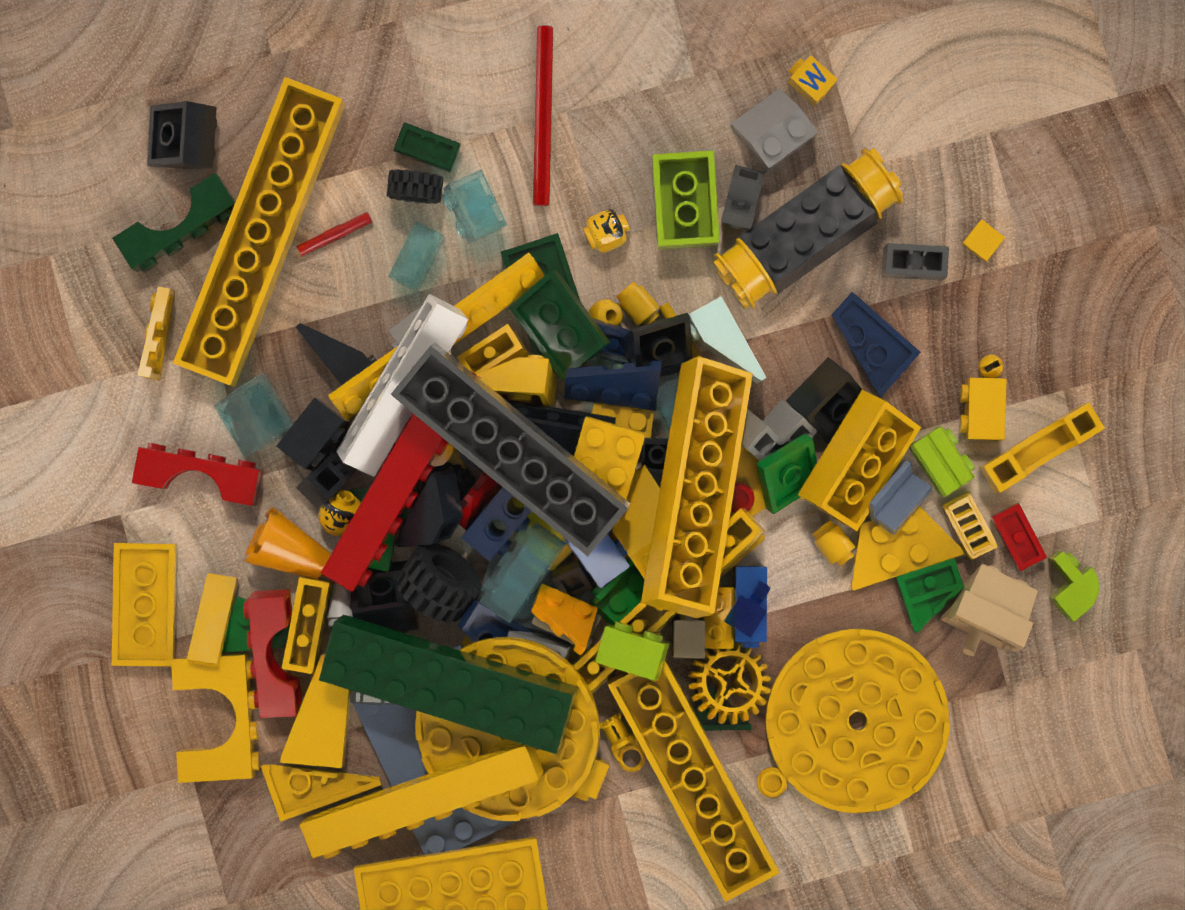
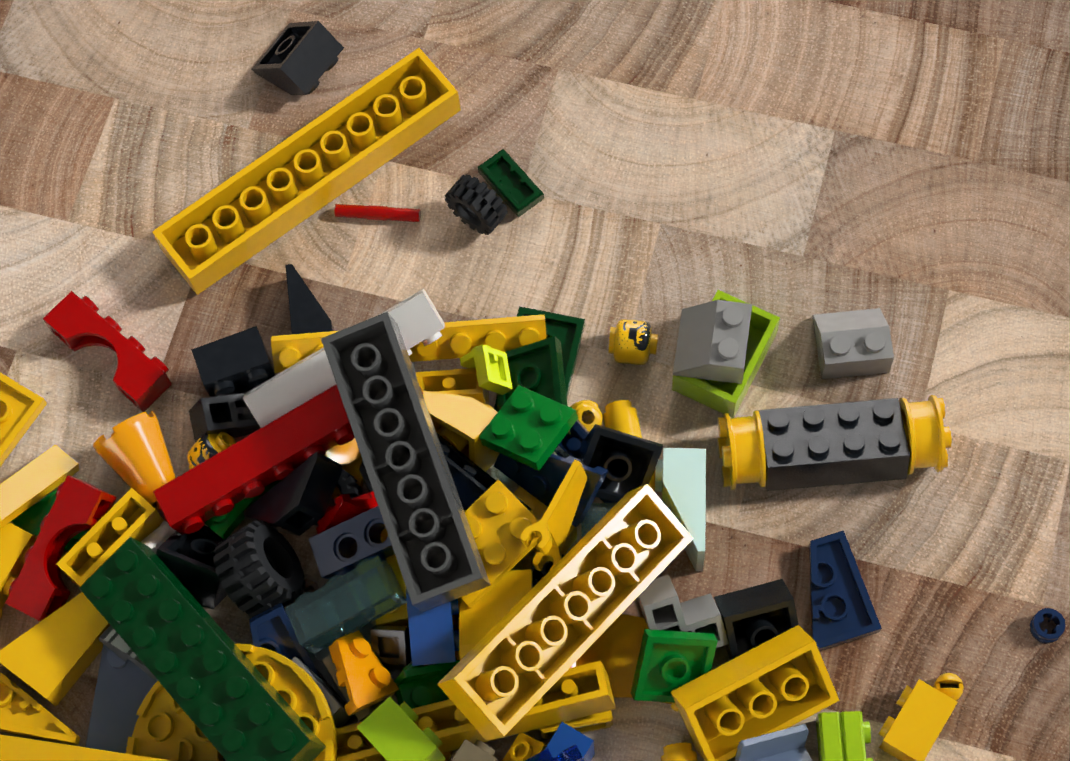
camera: 40 degrees right, 20 degrees down
(156, 334) = (156, 208): yellow wing -> none
(209, 203) = (202, 130): dark green arch -> none
(255, 415) = (195, 319): clear light blue slope -> none
(416, 257) = (439, 267): clear light blue brick -> none
(473, 207) = (520, 253): clear light blue brick -> none
(516, 323) = (491, 368): none -> neon yellow bracket
(543, 112) = (635, 214): red axle -> none
(579, 359) = (528, 427): none -> green plate
(649, 429) = (557, 518): none -> yellow flag
(676, 204) = (713, 341): none -> light grey slope
(742, 197) = (784, 382): dark grey brick -> none
(742, 497) = (615, 667): red tile -> none
(811, 79) = (915, 314): yellow brick -> none
(915, 261) = (924, 535): dark grey brick -> none
(983, 240) = (1008, 558): yellow tile -> none
(1047, 277) = (1053, 615): none -> dark blue bush

